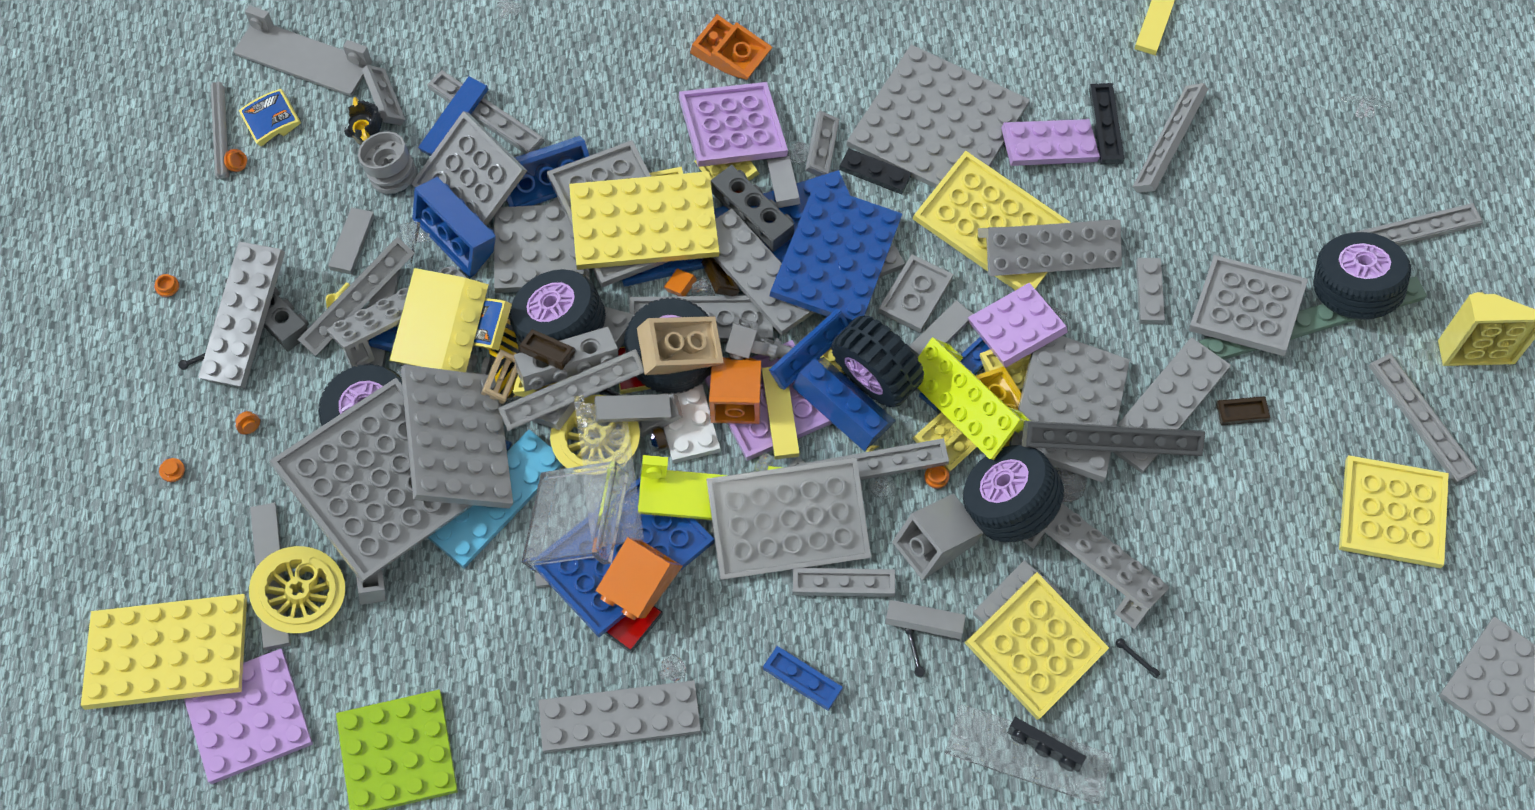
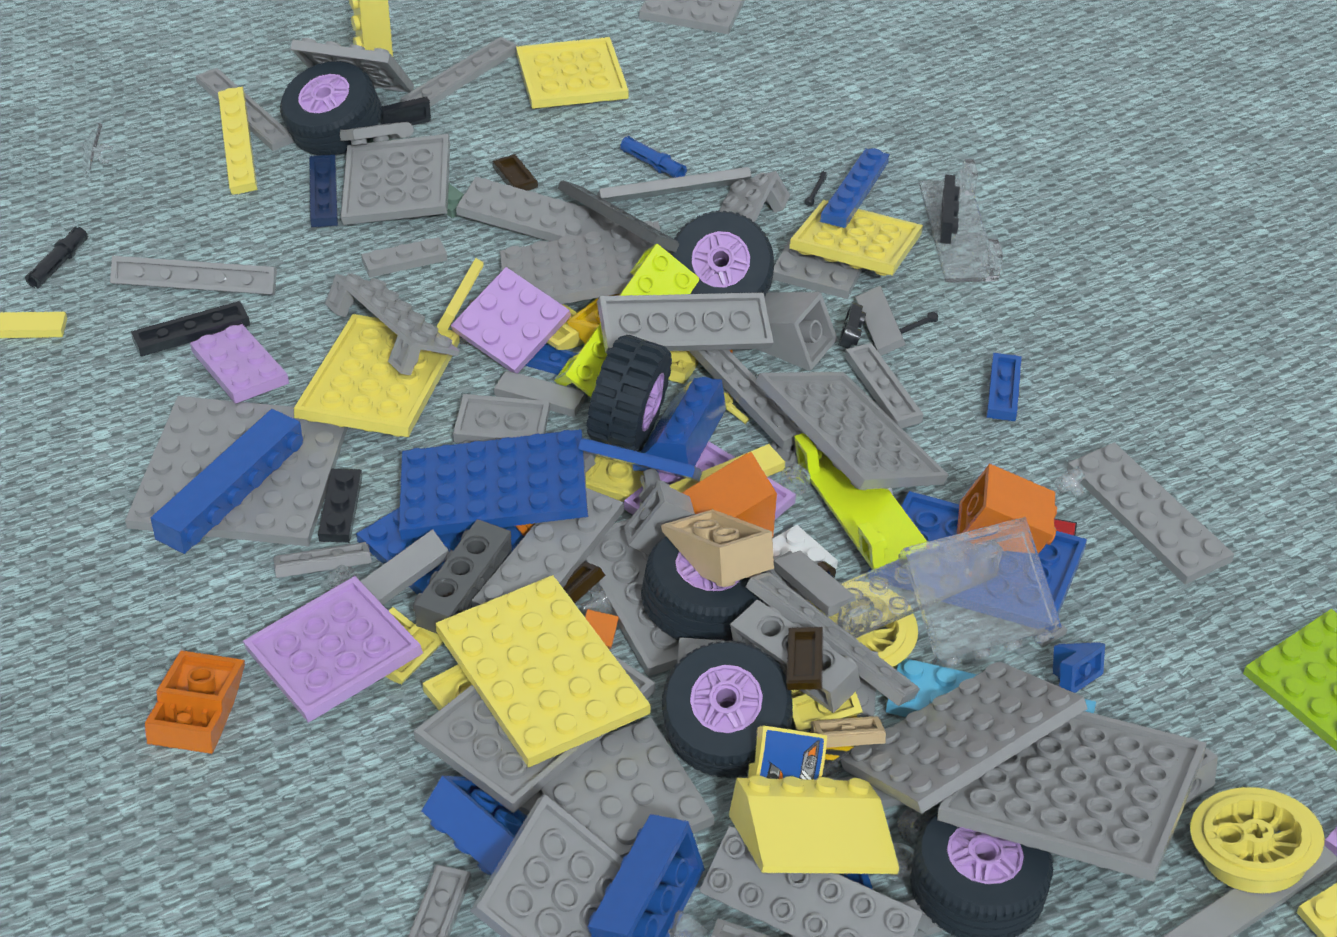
camera: 115 degrees left, 20 degrees down
(492, 570) = (1078, 664): none -> blue slope
(911, 100) = (227, 481): none -> blue brick
(933, 596) = (854, 319): none -> black plate
(941, 429) = (688, 320): none -> light grey plate
(1067, 302) = (459, 296): none -> light yellow tile
(1115, 682) = (855, 188): none -> blue plate
(1174, 529) = (673, 185): none -> light grey tile
(1217, 534) = (660, 161): none -> blue pin
(1225, 54) = (62, 250): none -> black pin
(1261, 254) = (323, 191): none -> dark blue plate
(1313, 301) = (378, 132): none -> light grey hinge
(1357, 209) = (237, 141): none -> light yellow plate
(1357, 346) = (412, 111): none -> black tile
(1415, 304) = (378, 64): none -> light grey plate

